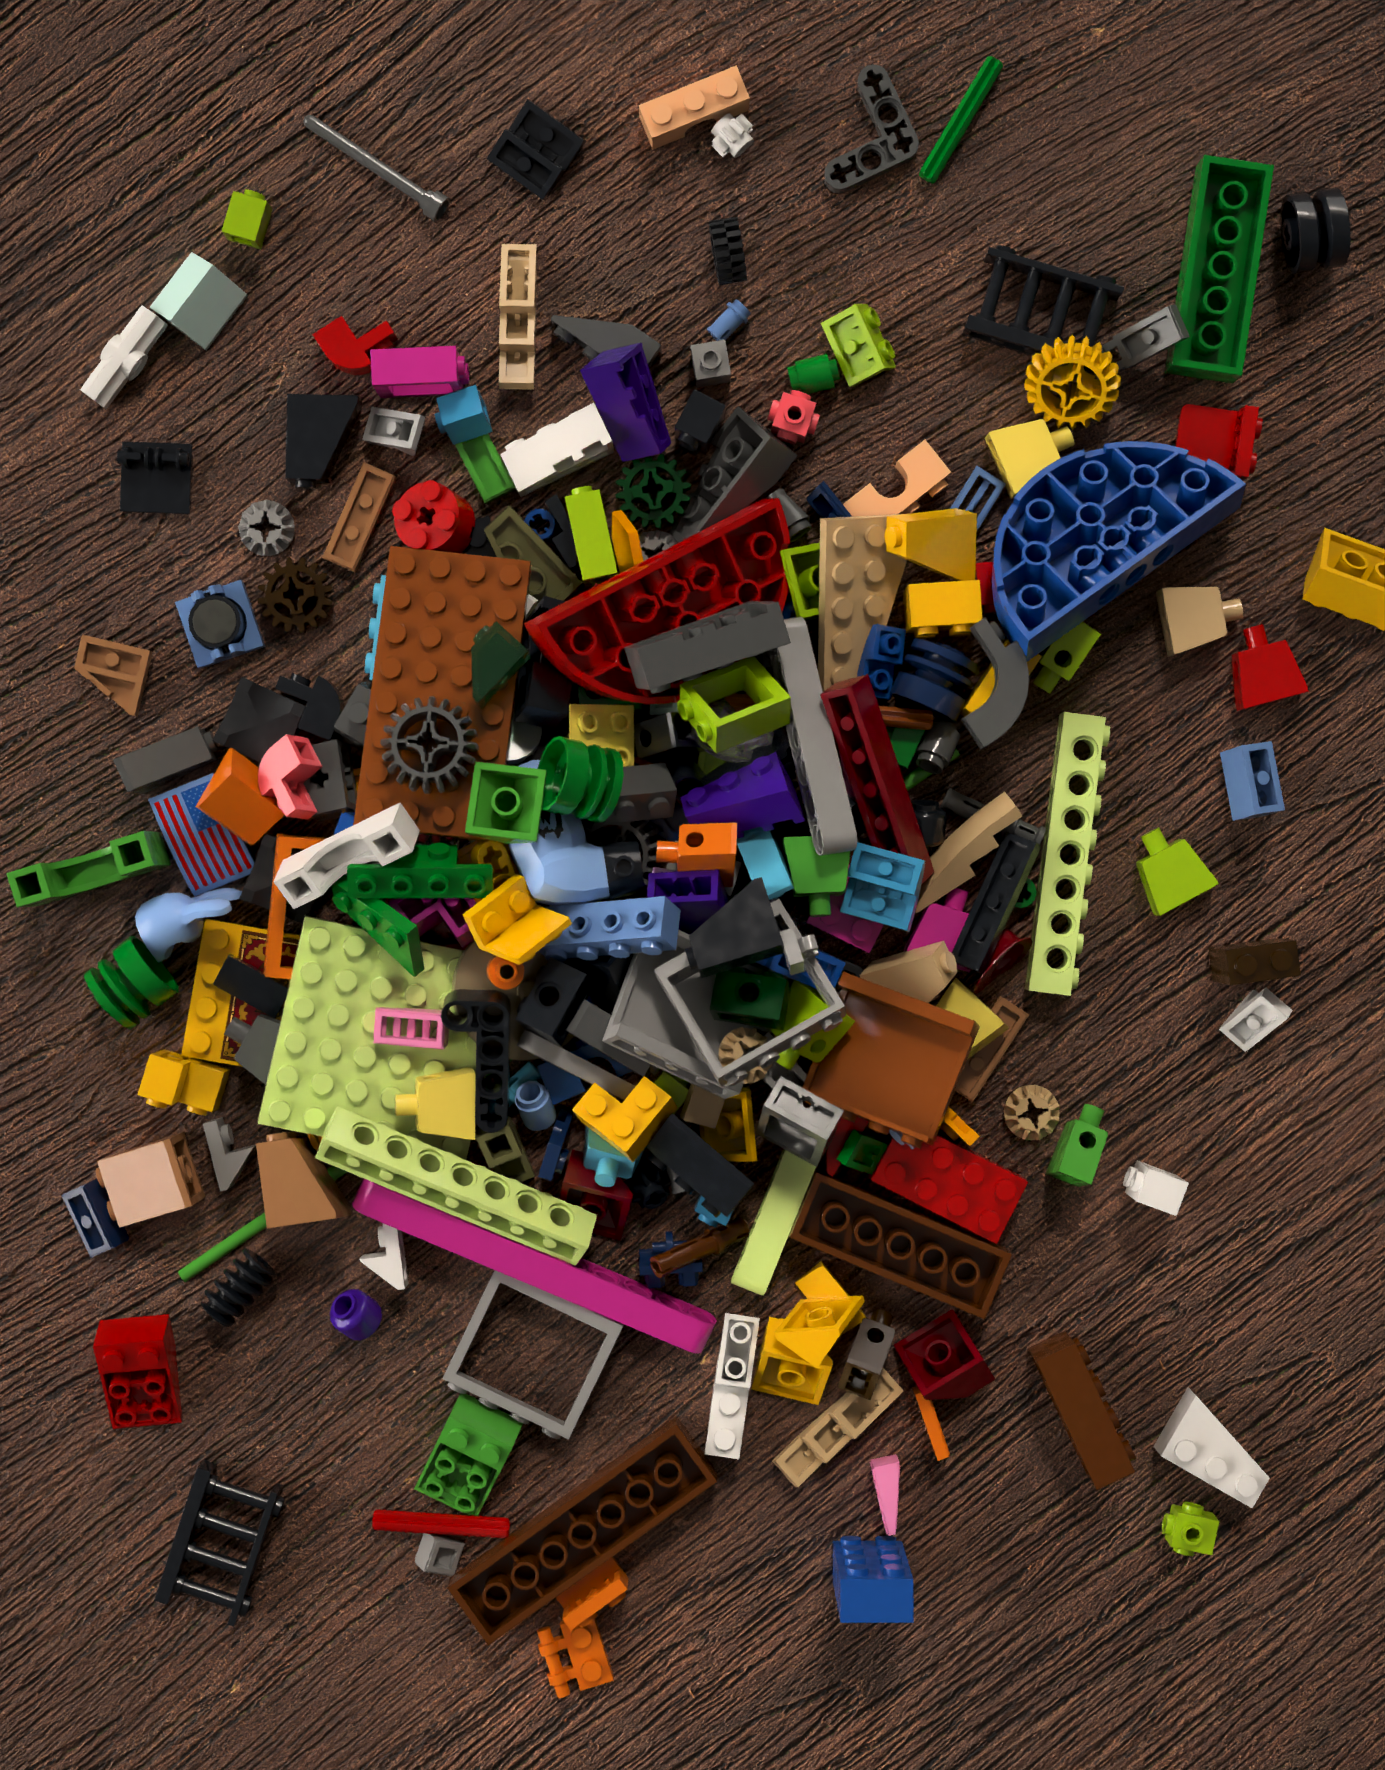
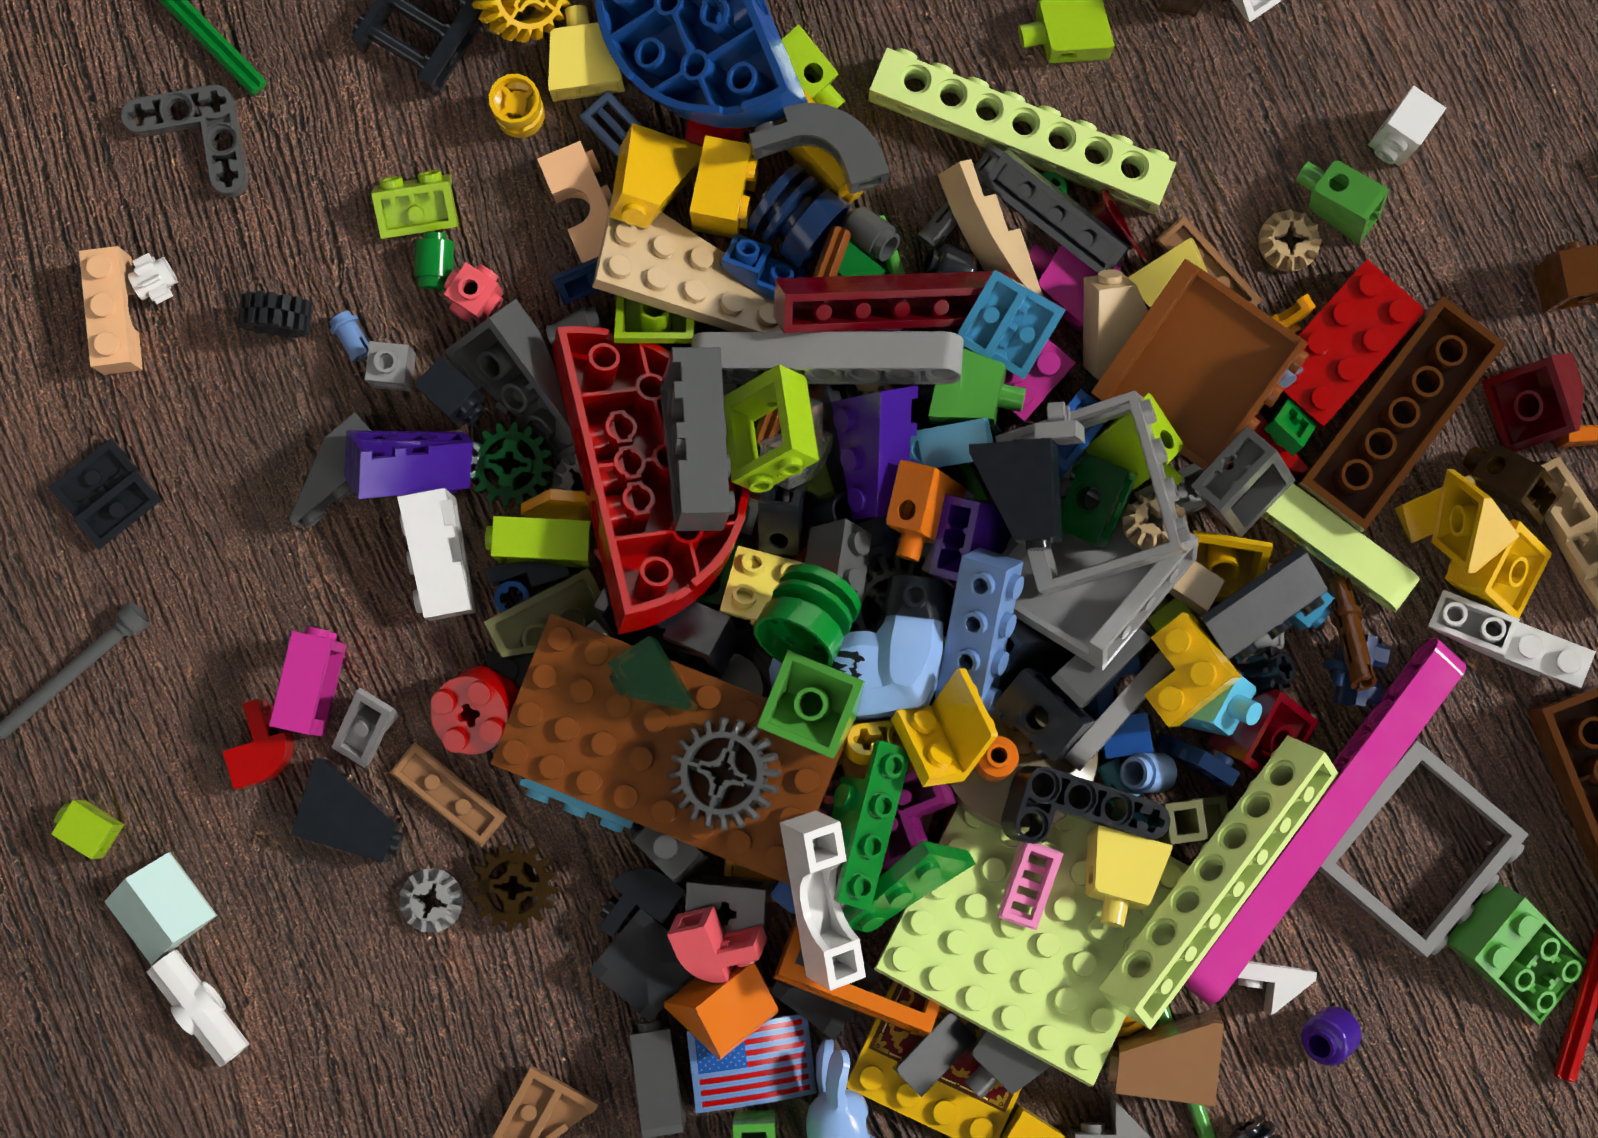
camera: 75 degrees left, 5 degrees down
(155, 477) = (340, 1009): black hinge -> none
(219, 623) = (522, 981): piece -> none
(463, 415) = (369, 648): dark azure brick -> none
(485, 467) = (429, 641): bright green tile -> none
(517, 316) = (279, 561): tan slope -> none
(968, 408) = (517, 105): none -> yellow wheel

